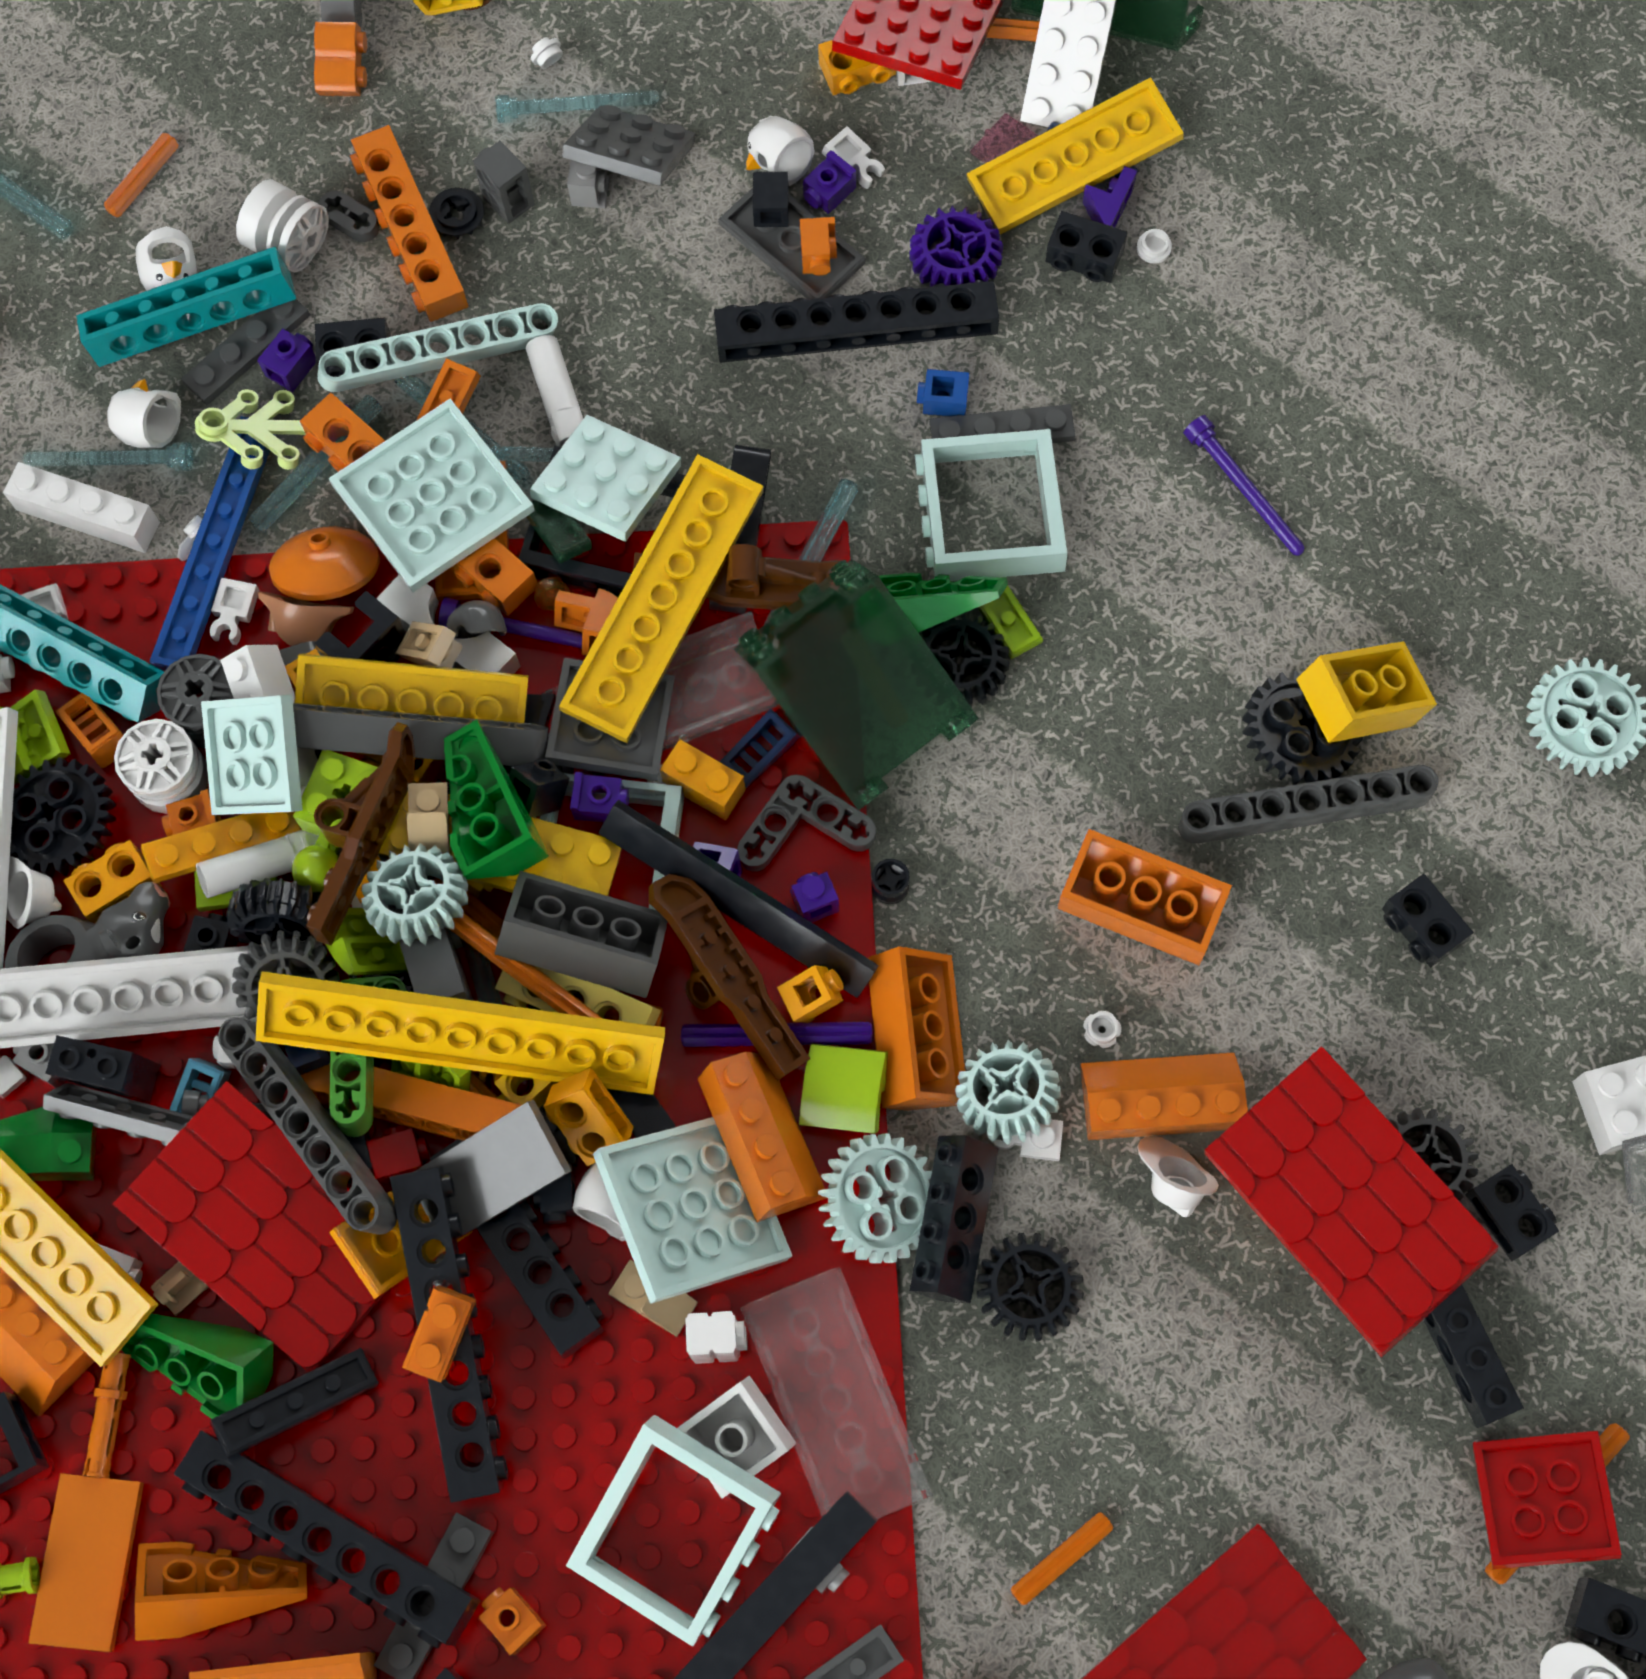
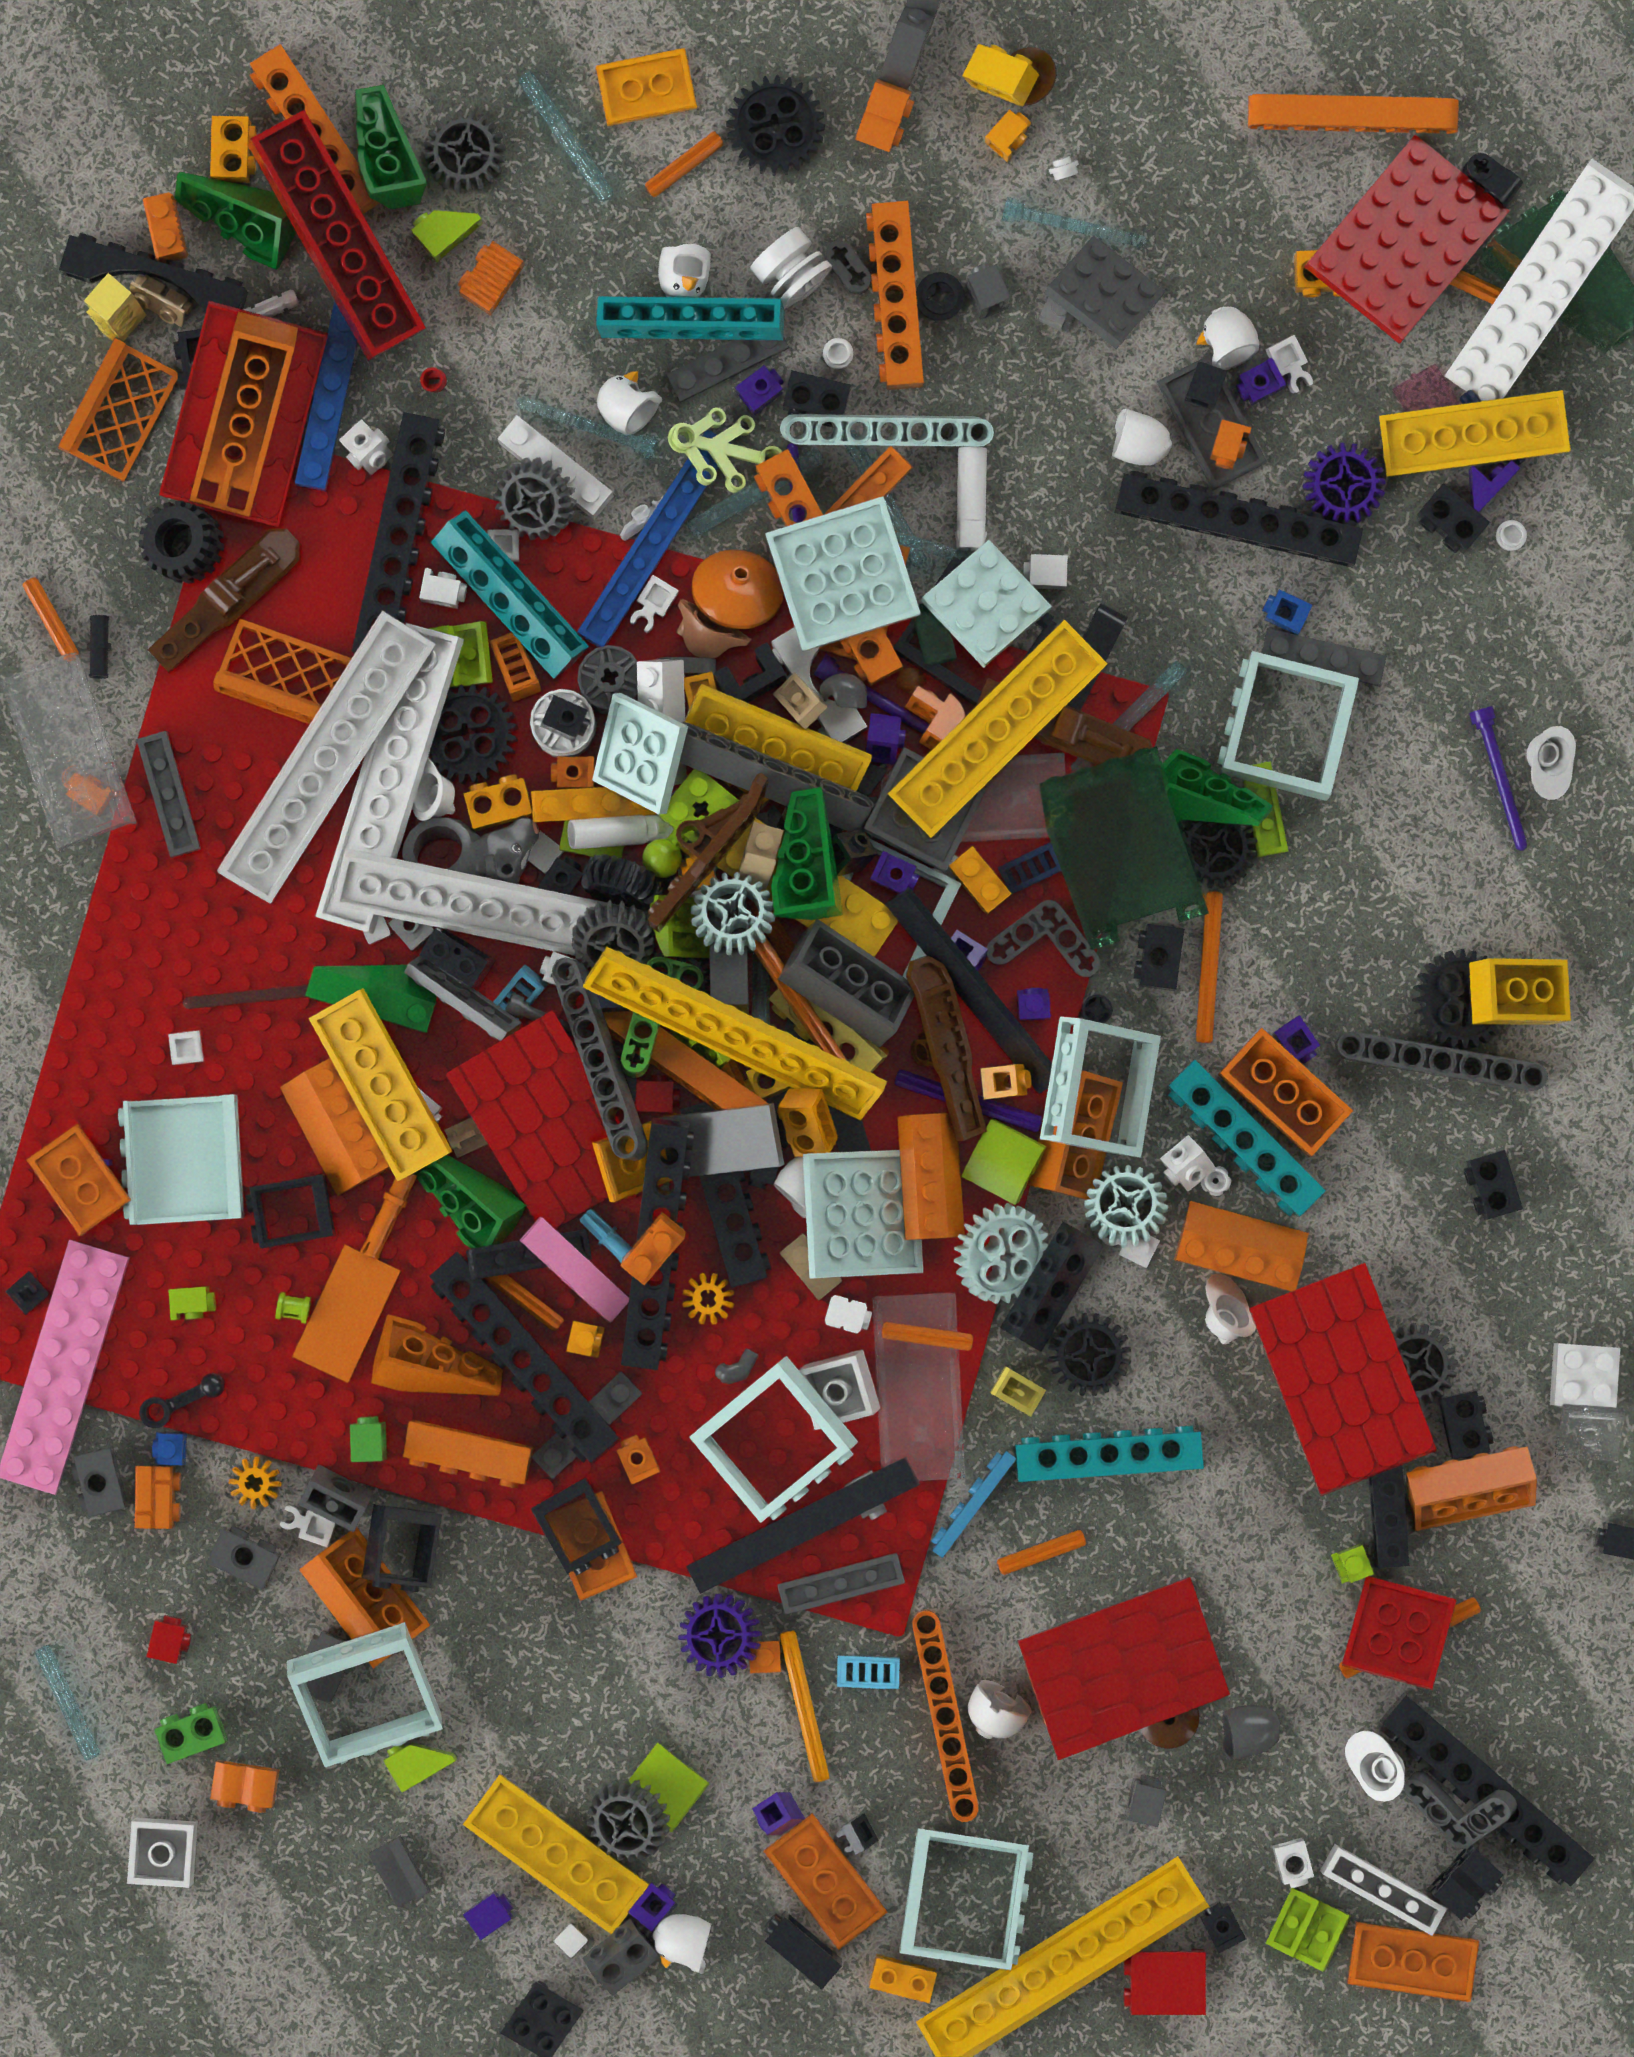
camera: 15 degrees right, 15 degrees up
(41, 537) = (544, 520): none -> dark grey gear
(79, 117) = (646, 87): none -> light orange tile
(150, 745) = (565, 718): none -> black brick
(179, 920) = (544, 853): none -> white tile
(223, 98) = (782, 152): none -> black gear
(310, 1464) = (527, 1301): none -> orange axle
(357, 1401) = (575, 1269): none -> bright pink tile
(364, 300) = (838, 353): none -> white plate
(380, 1342) = (605, 1234): none -> medium azure axle
(397, 1486) = (585, 1339): none -> light orange brick
(475, 39) = (1008, 134): none -> light orange brick
(540, 661) = (884, 738): none -> dark purple brick
(550, 1374) = (697, 1298): none -> light orange gear
(604, 1460) = (738, 1371): none -> dark grey arm
(668, 433) = (1046, 571): none -> white brick
(720, 274) = (1140, 439): none -> white piece
(823, 1330) = (927, 1336): none -> orange axle
(884, 969) = (1065, 1083): none -> light aqua window
(943, 777) = (1170, 941): none -> black brick
(947, 1542) = (964, 1513): none -> dark azure plate
(959, 1363) = (1017, 1391): none -> light yellow slope
(1003, 796) = (1209, 967): none -> orange axle
(1061, 1018) = (1187, 1164): none -> white brick
(1134, 824) = (1297, 1028): none -> dark purple brick
(1141, 964) = (1306, 1189): none -> teal brick
(1197, 1372) = (1188, 1457): none -> teal brick
(1294, 445) = (1552, 761): none -> white piece
(1451, 1433) = (1352, 1564): none -> lime brick
(1555, 1285) = (1471, 1488): none -> orange slope

